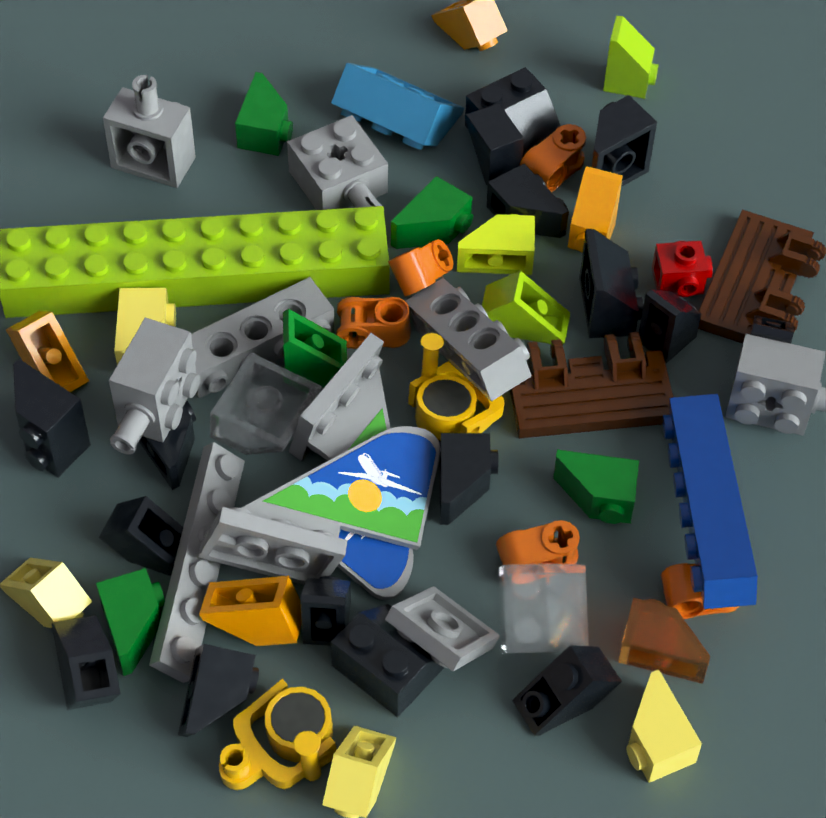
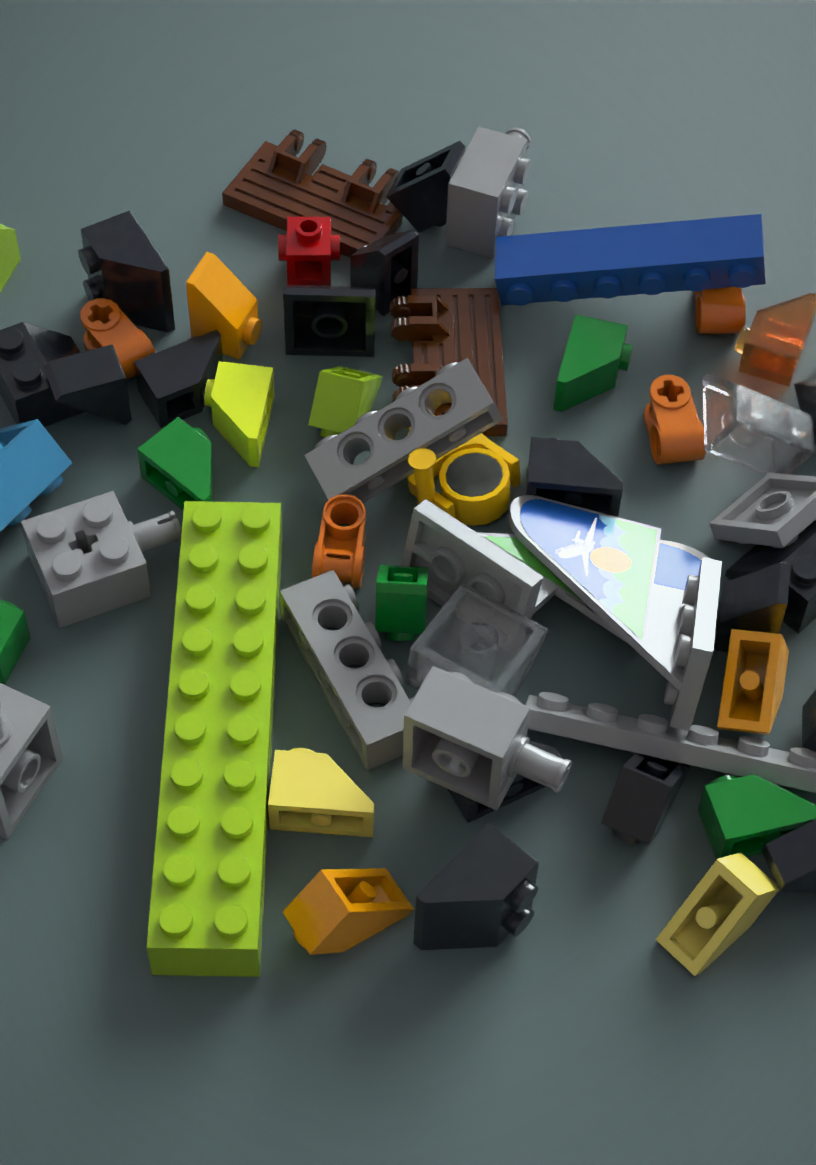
camera: 85 degrees left, 0 degrees up
(421, 266) = (282, 480): orange piece -> none

